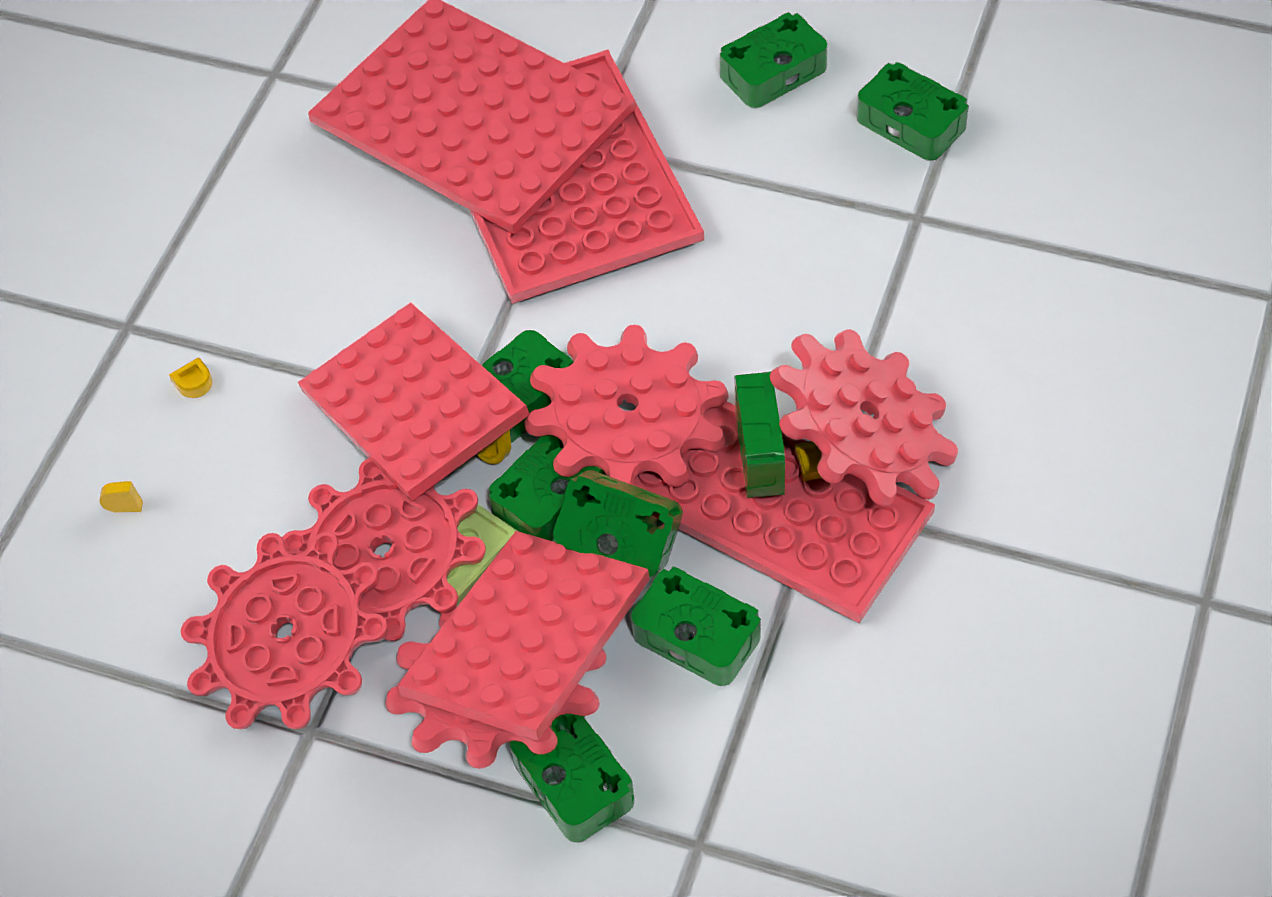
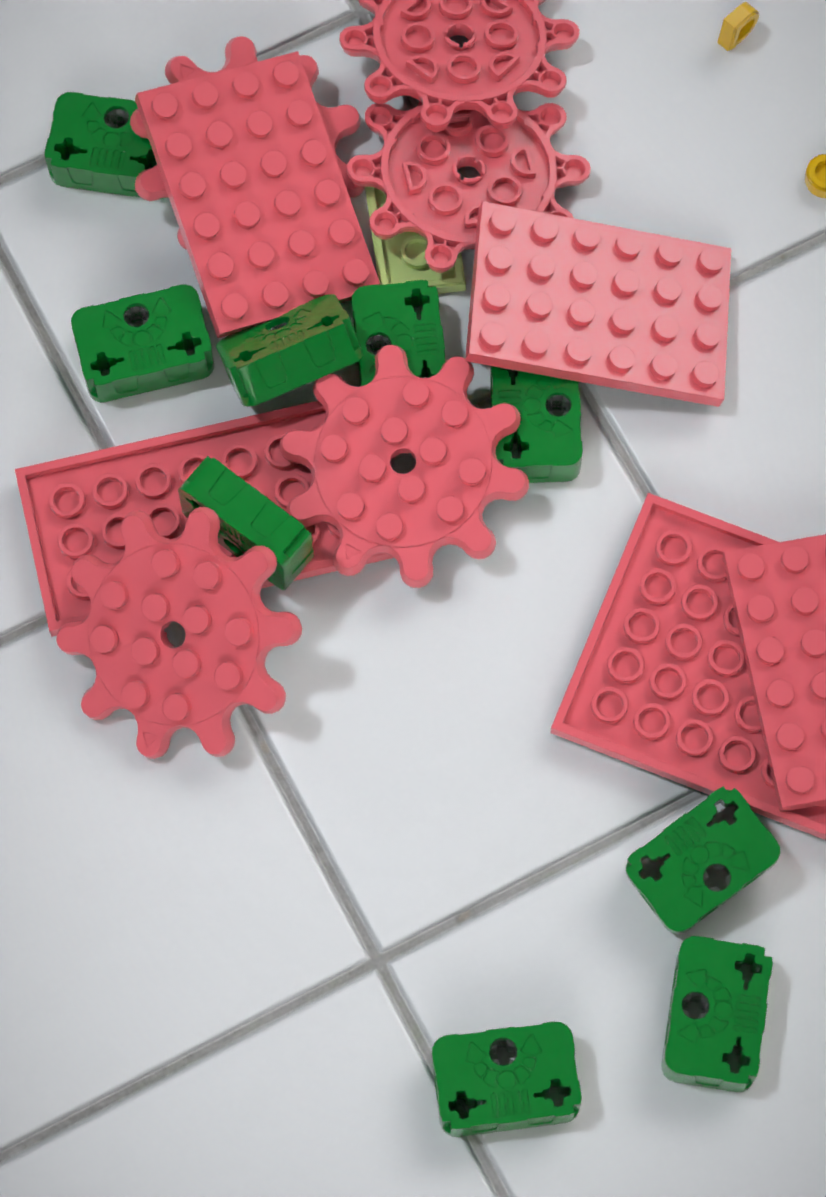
camera: 130 degrees right, 15 degrees up
(701, 113) = (740, 849): none -> green axle

